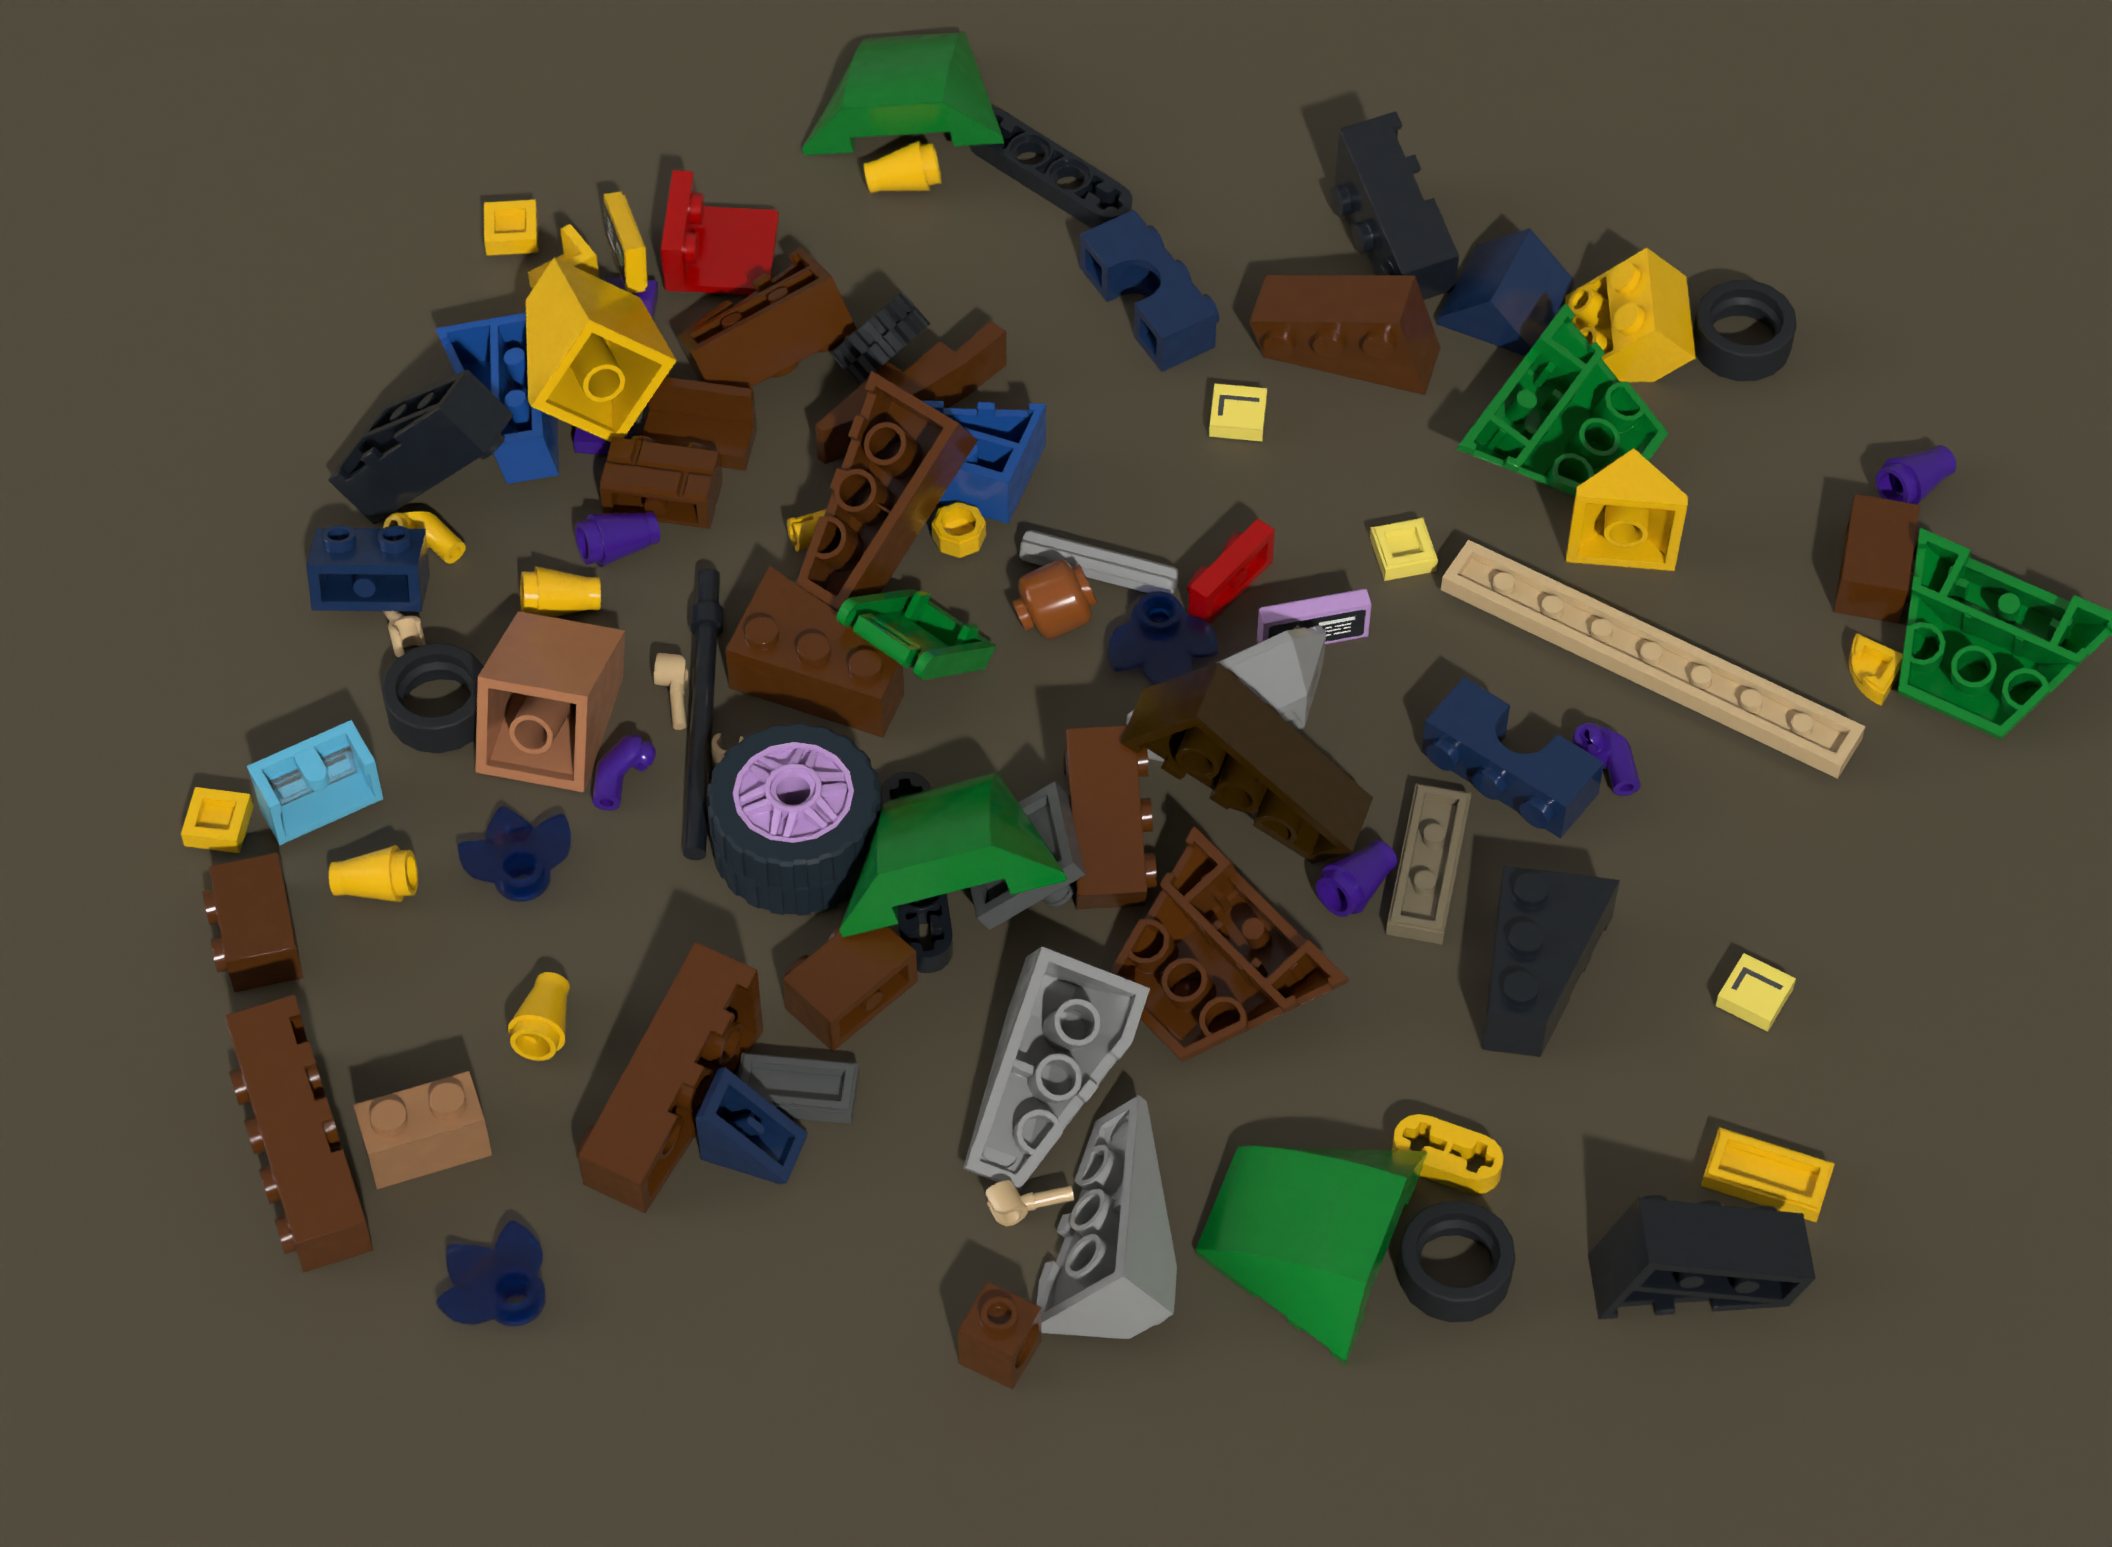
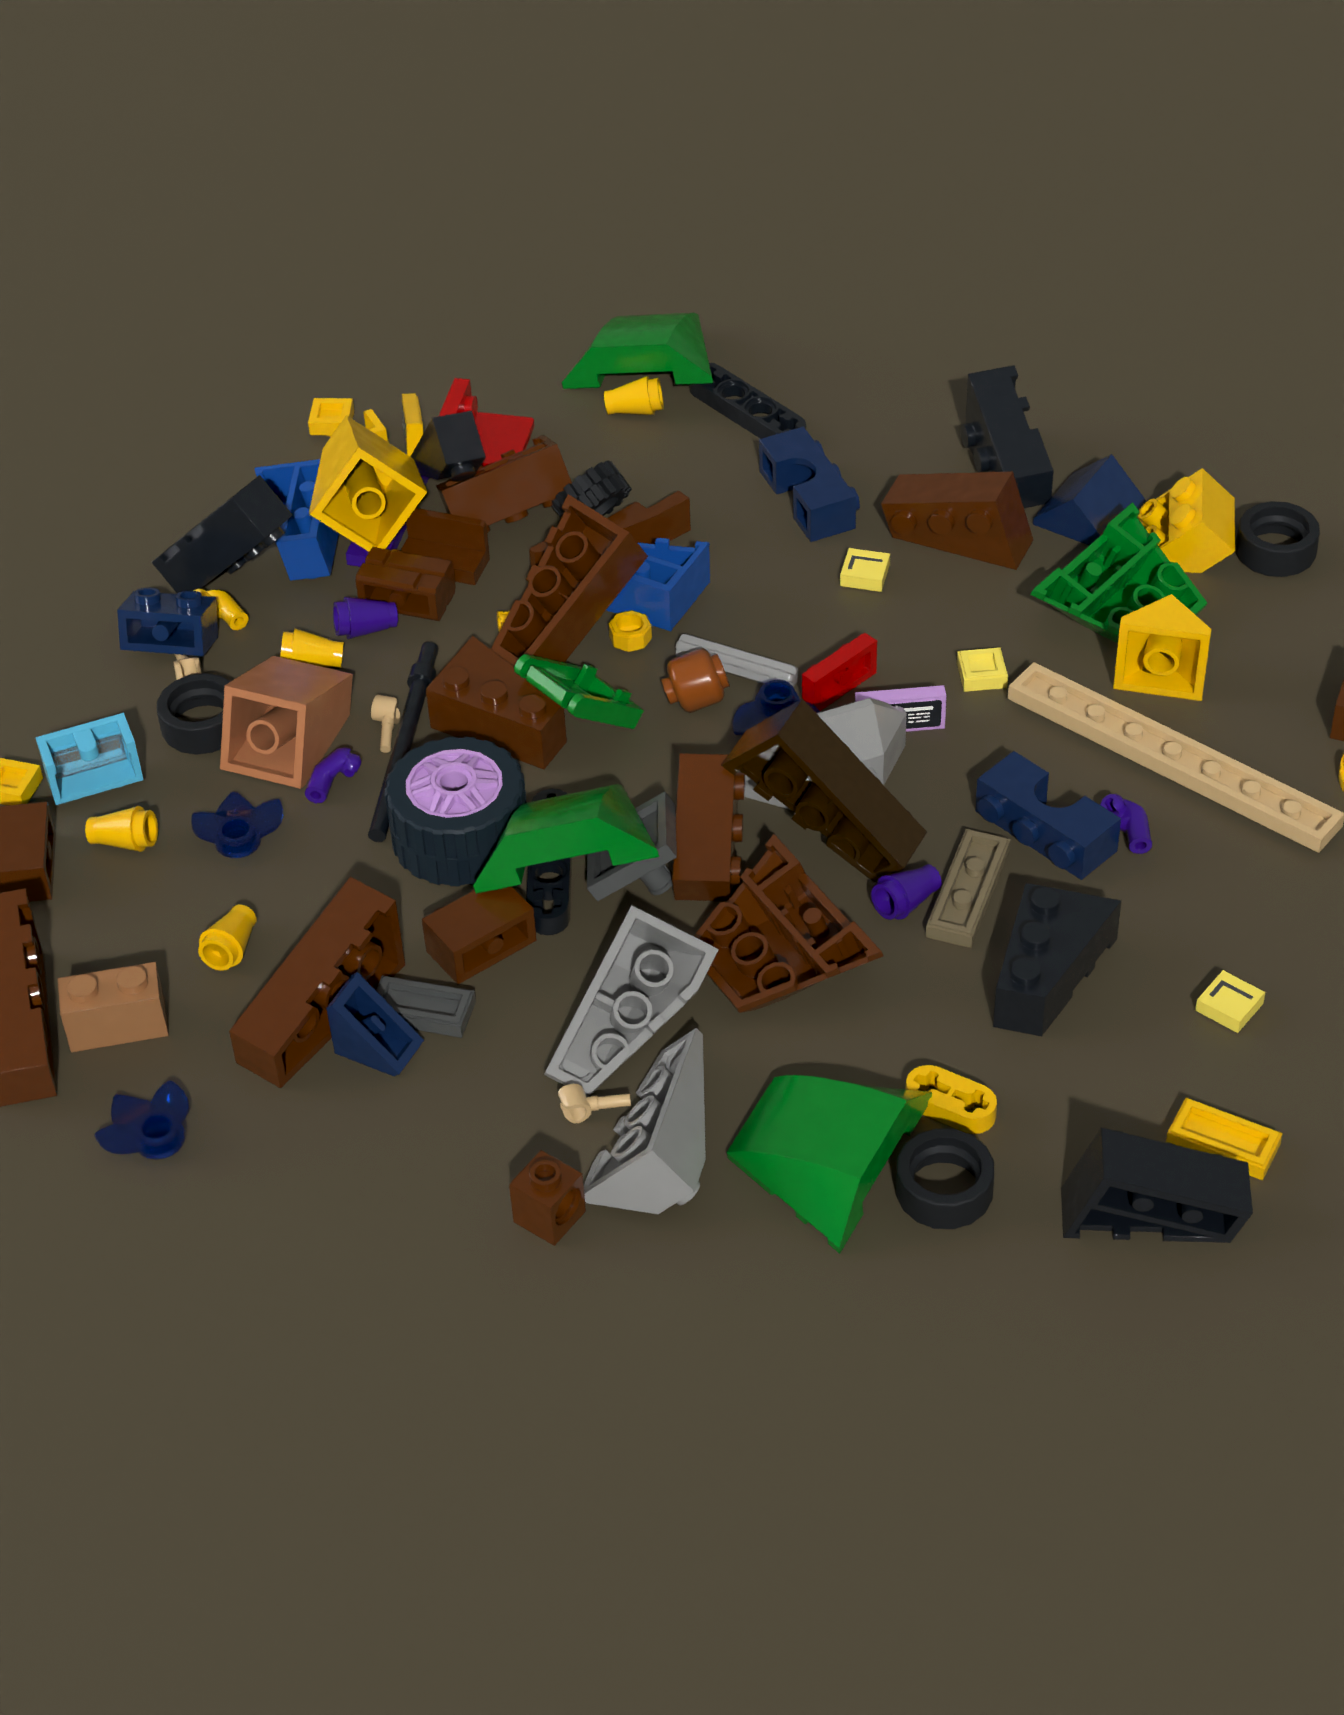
camera: 10 degrees right, 10 degrees down
(694, 295) = (450, 448): none -> black slope

